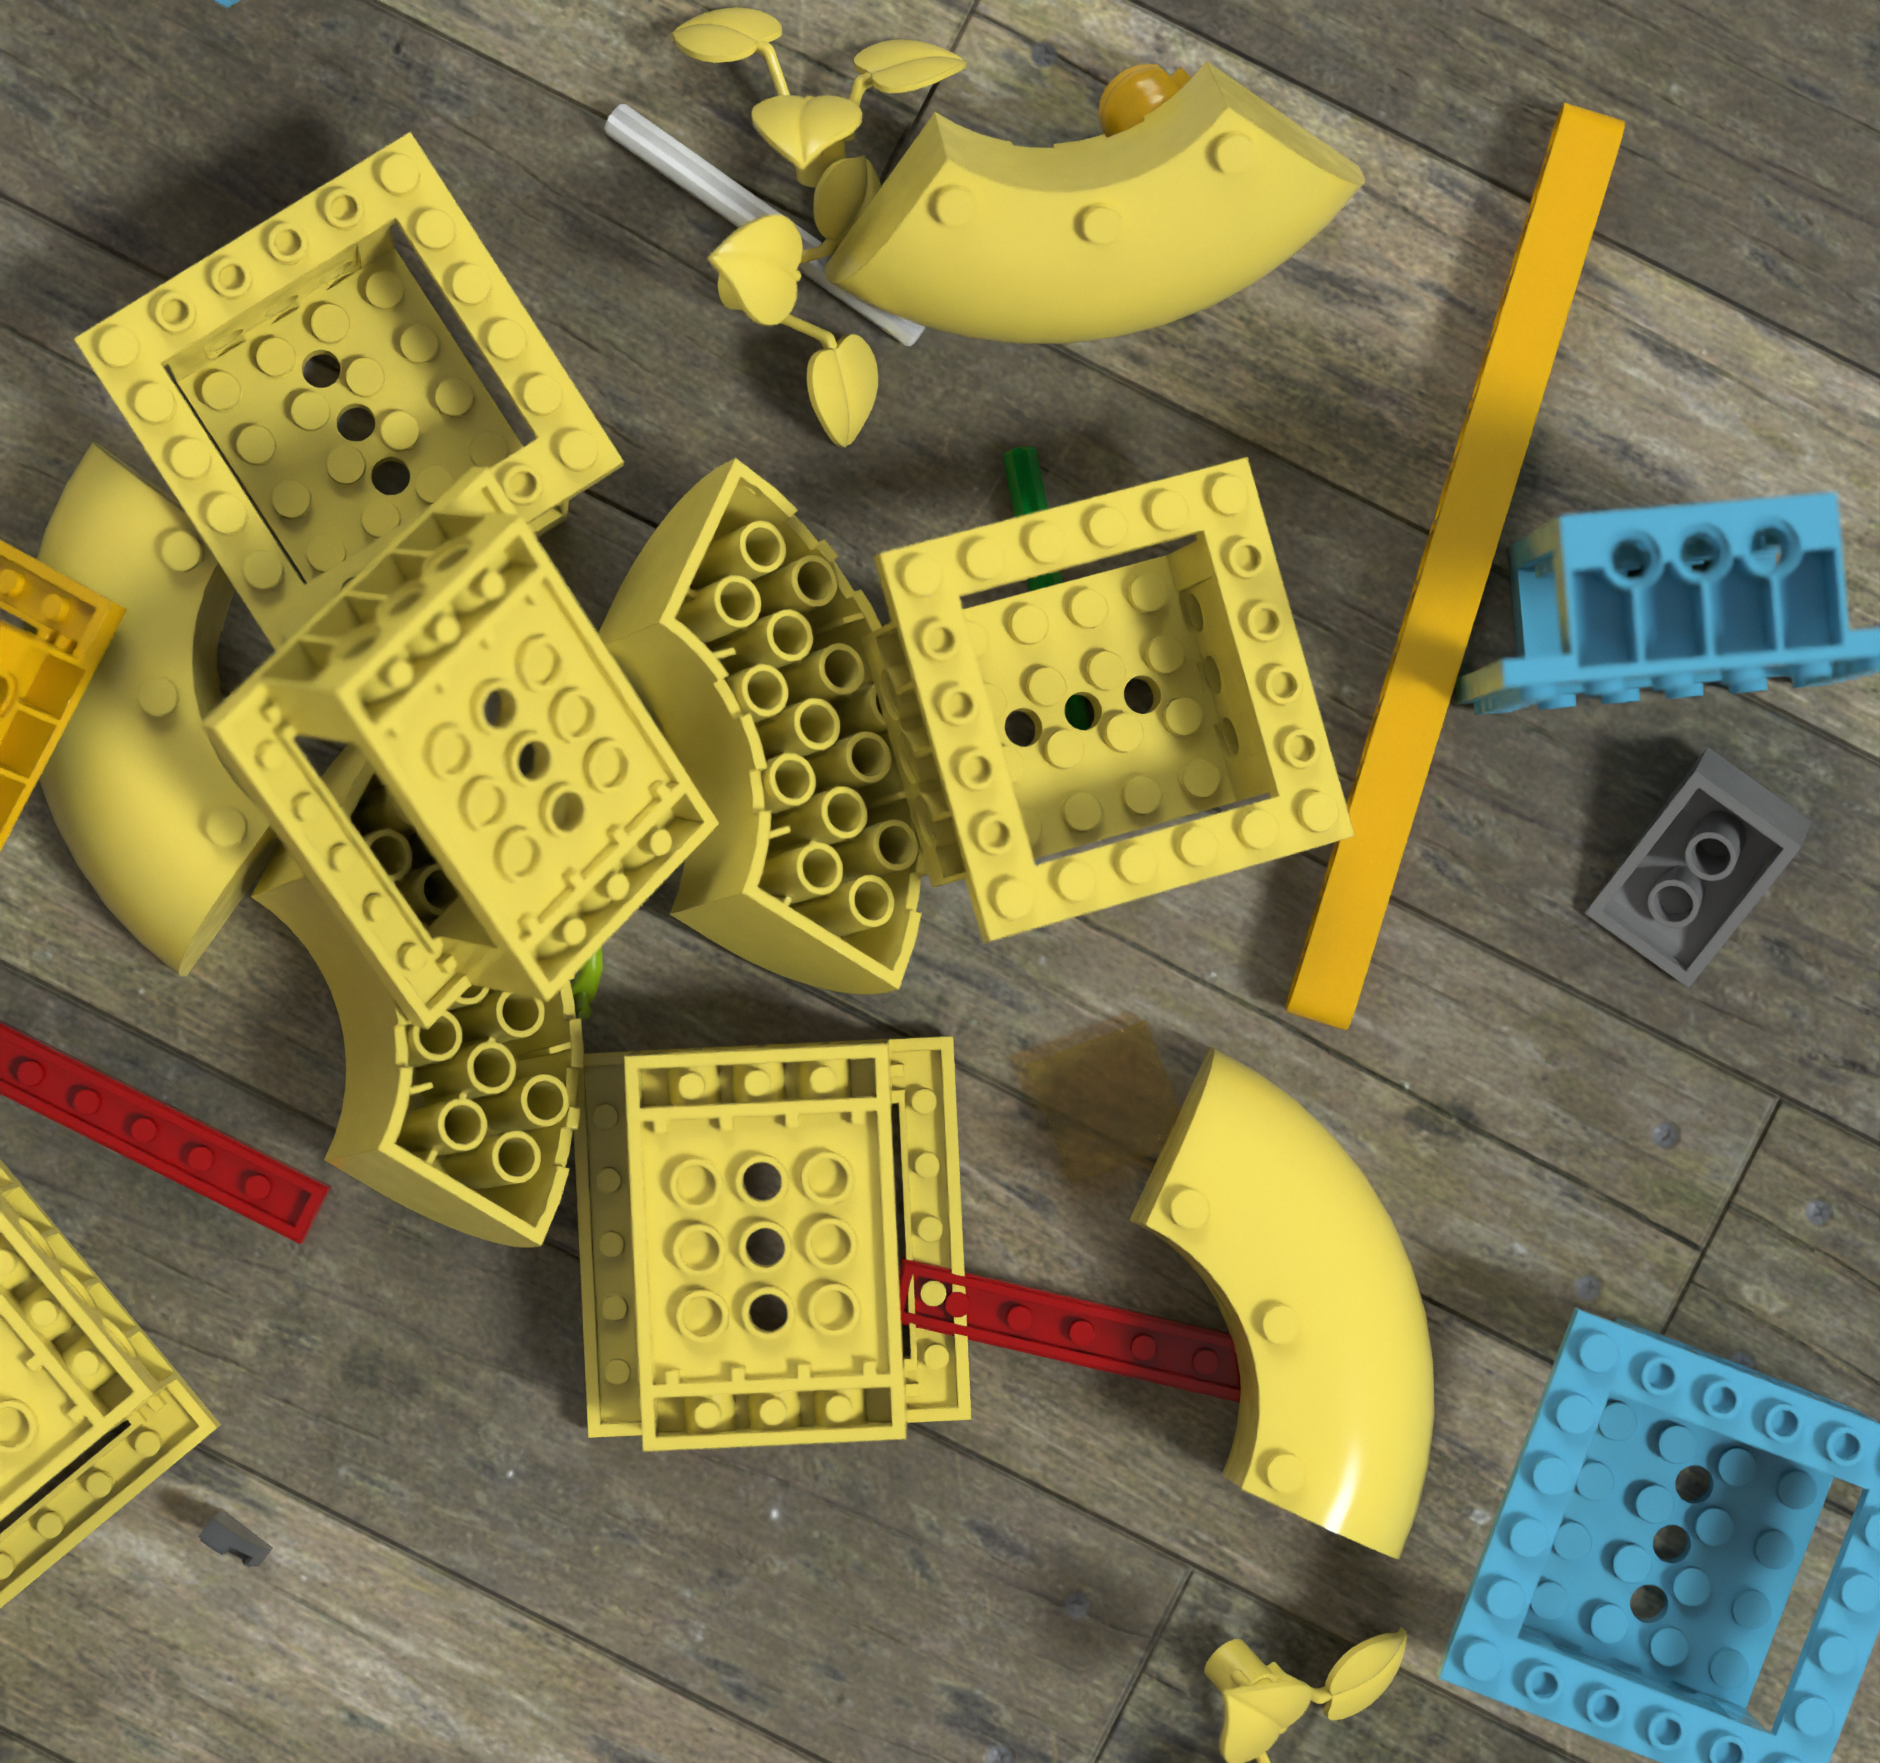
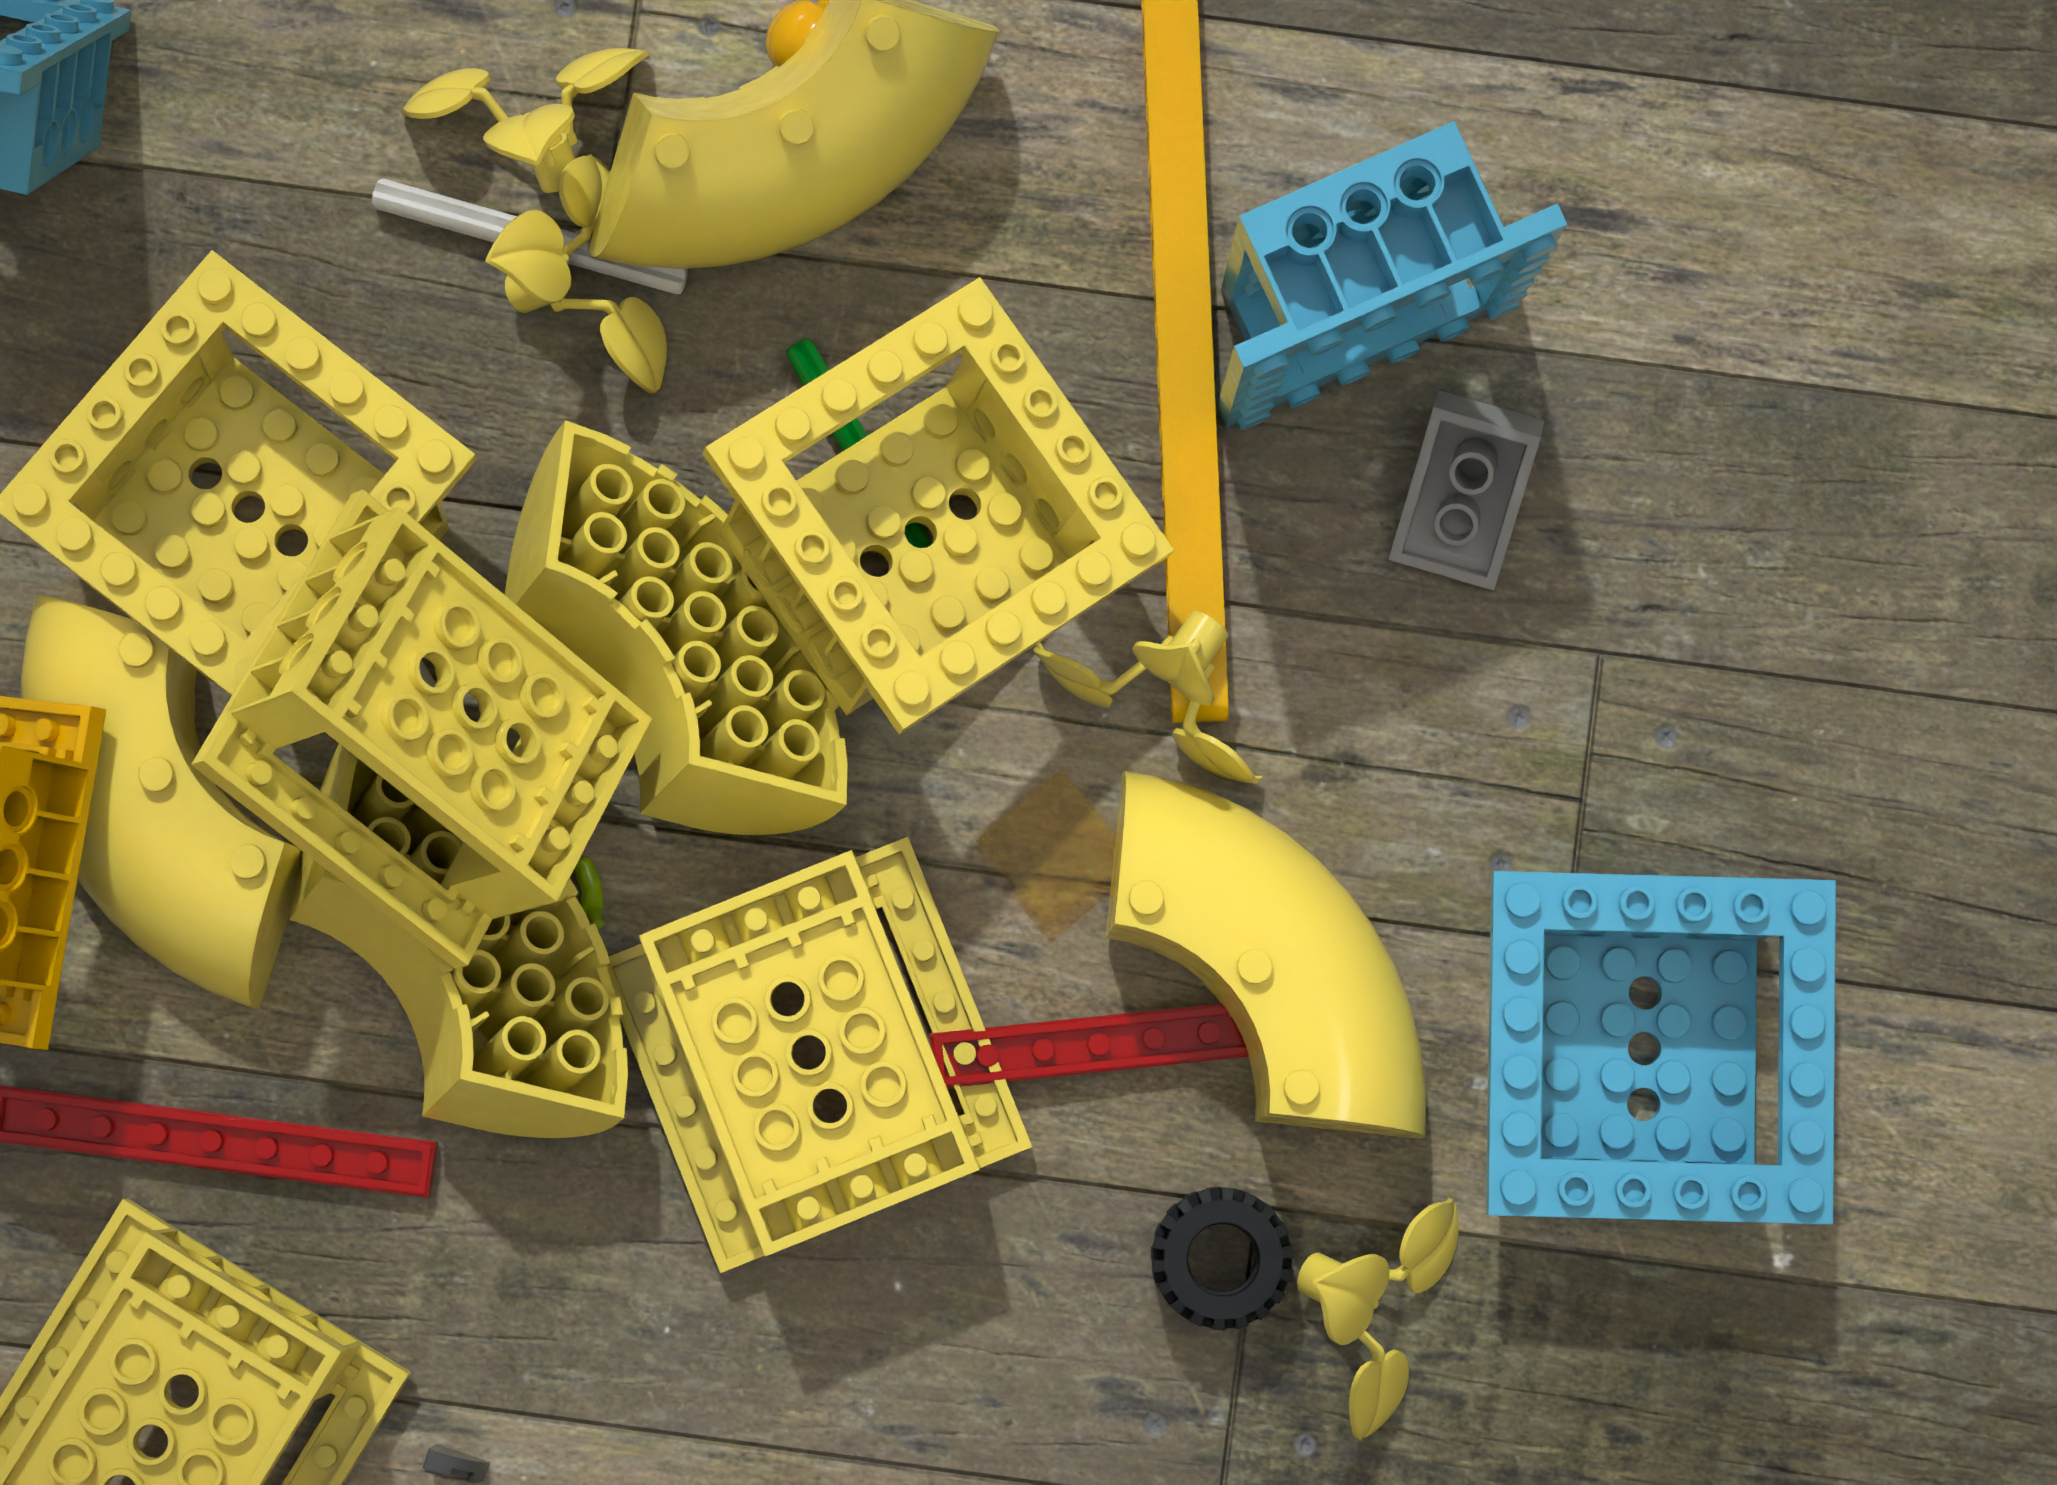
camera: 20 degrees left, 5 degrees down
(1134, 1665) = (1257, 1293): none -> black tyre
(1316, 965) = (1182, 663): none -> light yellow plant

